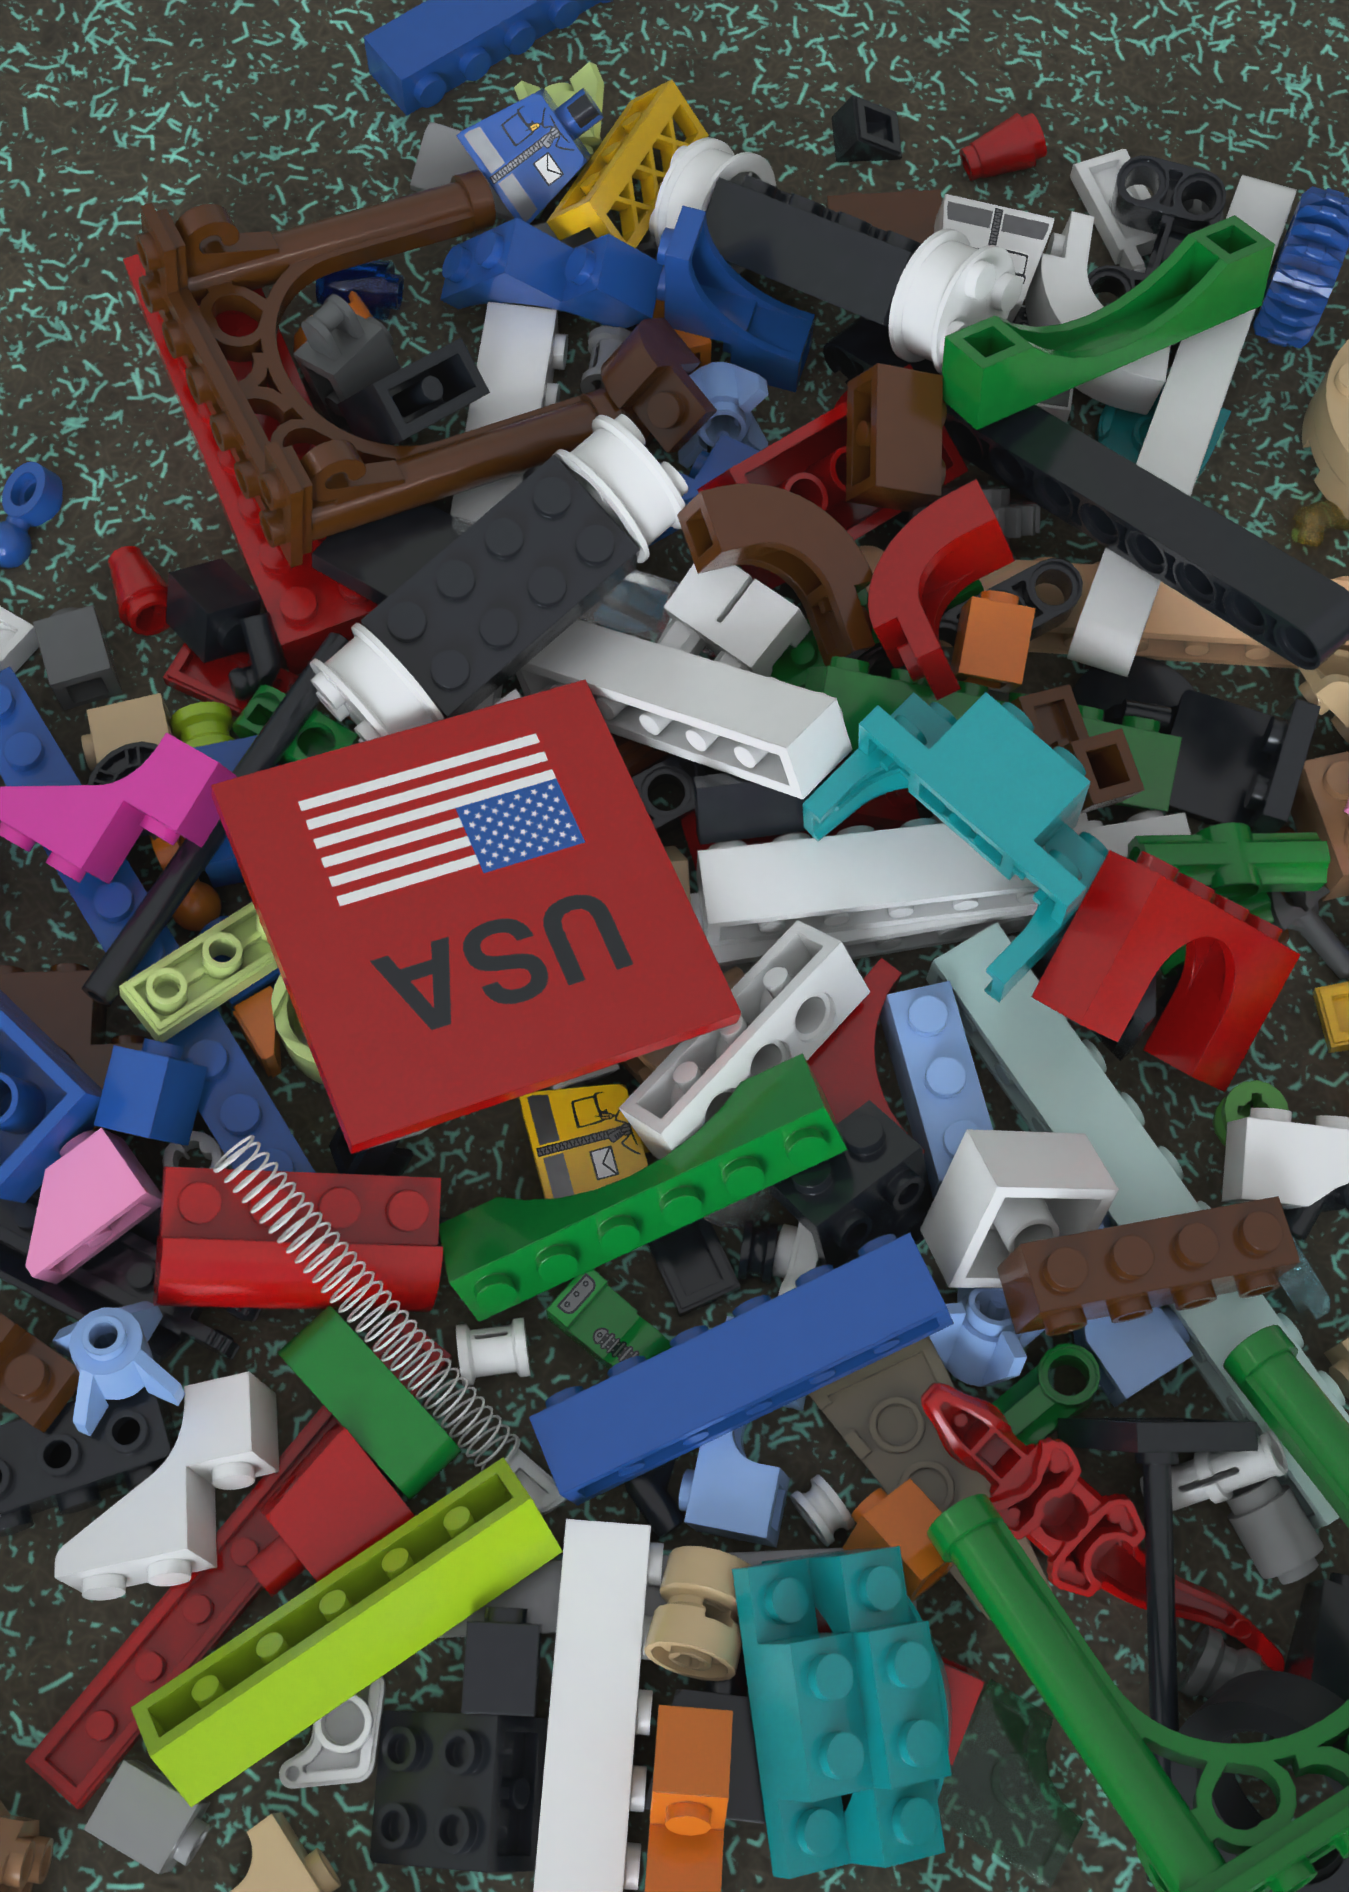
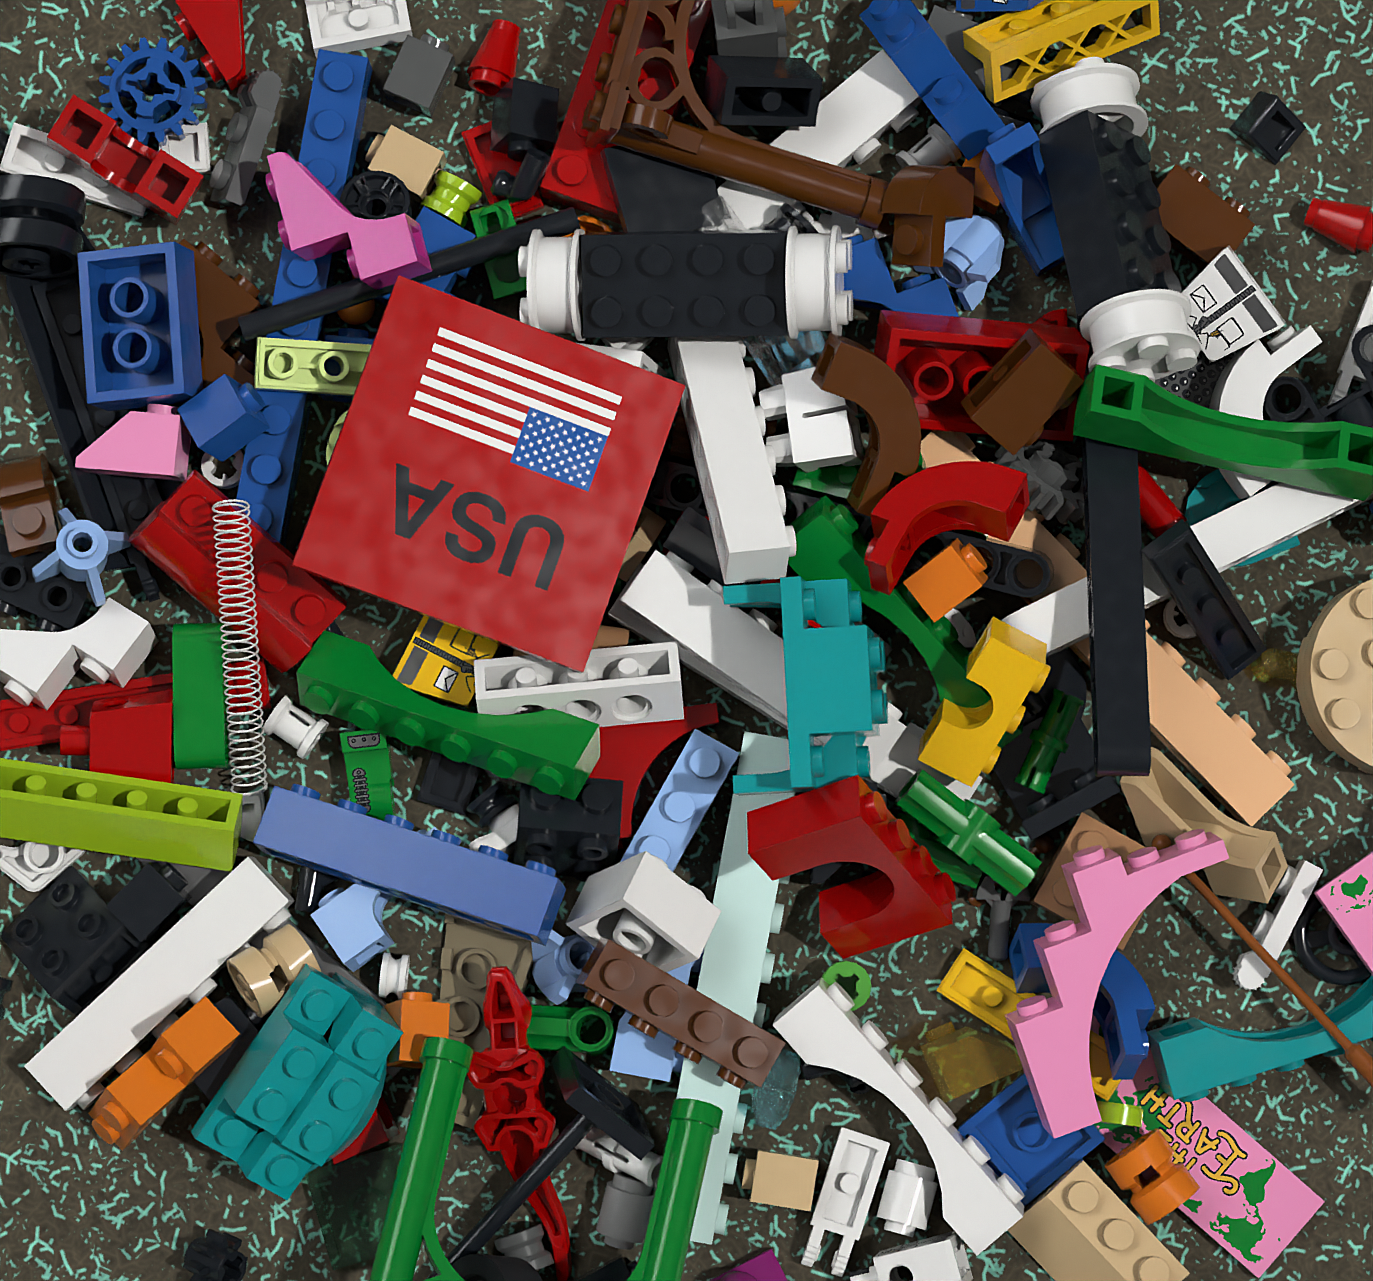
camera: 45 degrees right, 15 degrees up
(259, 1029) = (324, 418): orange slope -> none
(1103, 756) = (917, 689): reddish brown brick -> none
(1135, 671) = (966, 739): none -> yellow arch
(1199, 469) = (1204, 599): none -> black tile
(1207, 732) = (1049, 741): none -> green pin

